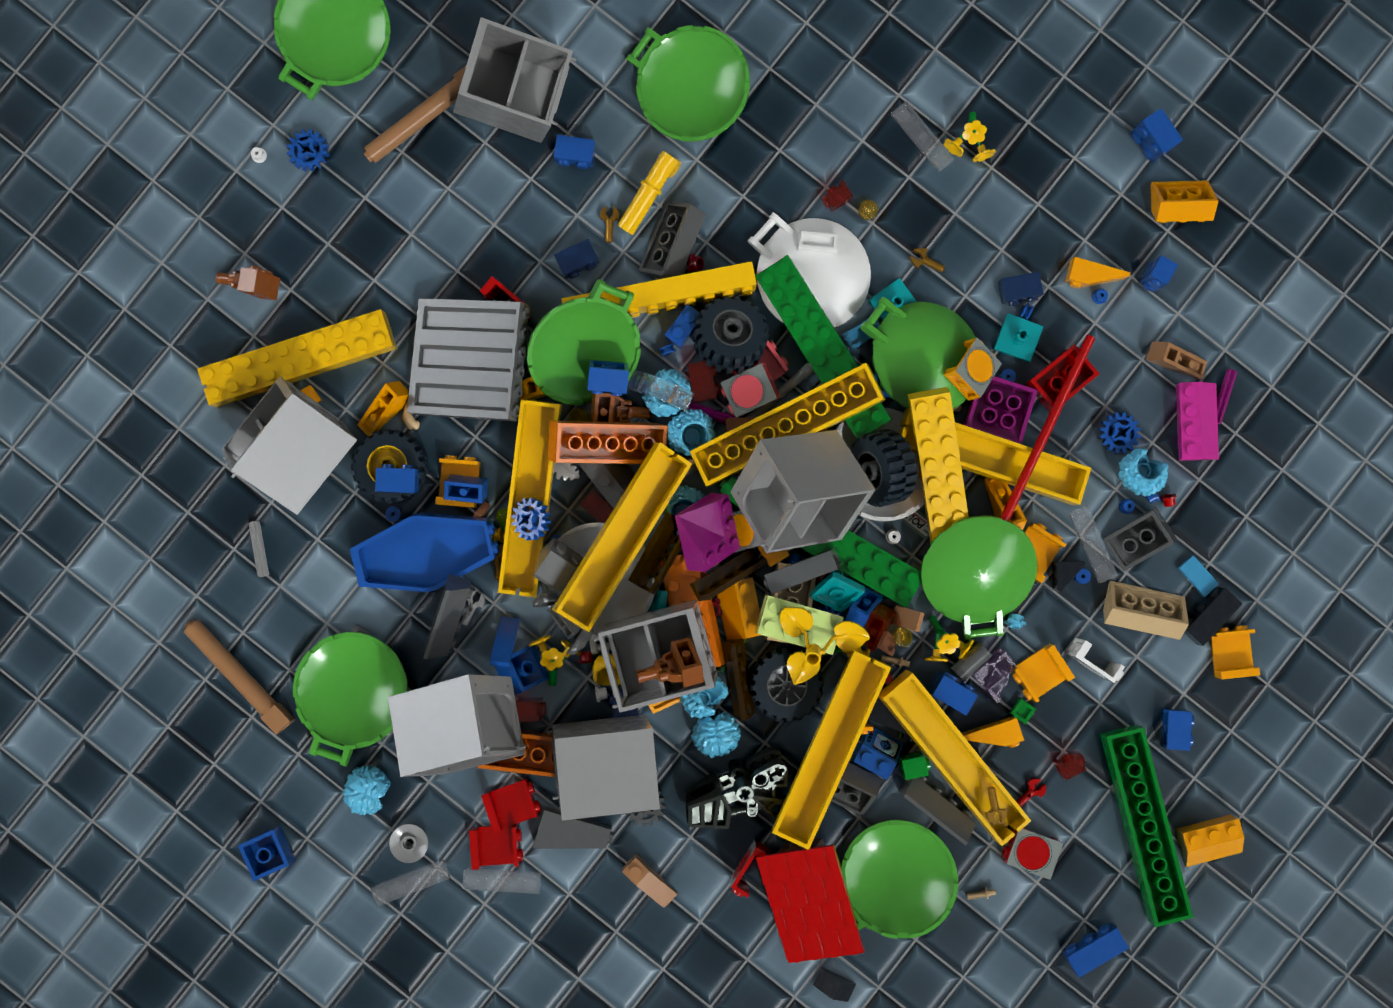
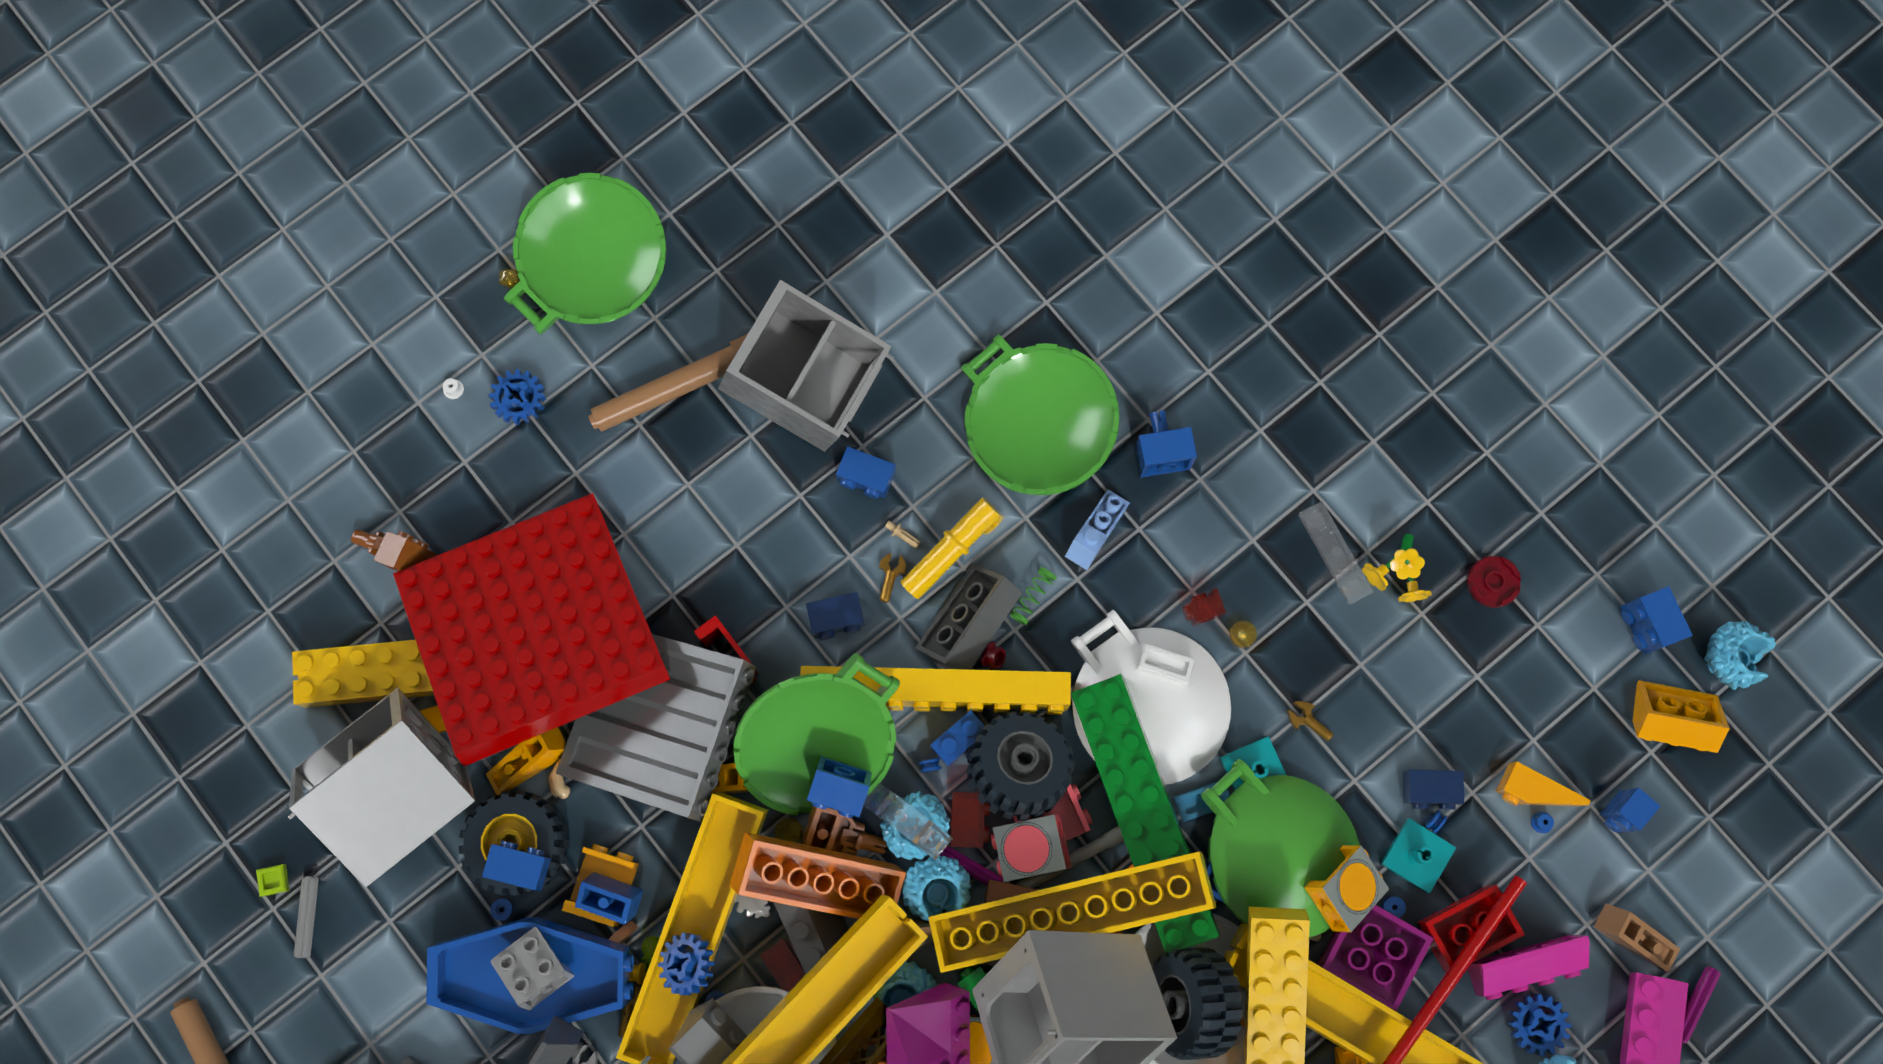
camera: 15 degrees right, 10 degrees down
(228, 529) = (272, 880): none -> lime tile
(277, 62) = (508, 278): none -> clear yellow tile
(362, 313) = (529, 629): none -> red brick
(425, 546) = (531, 969): none -> light grey bracket
(607, 189) = (901, 533): none -> tan piece
(718, 196) = (1044, 573): none -> bright green piece
(749, 156) = (1097, 529): none -> light blue slope
(786, 86) = (1164, 449): none -> blue brick
(1038, 133) = (1494, 581): none -> dark red tile
(1106, 394) = (1530, 965): none -> dark pink slope
(1215, 145) = (1734, 652): none -> medium azure hair

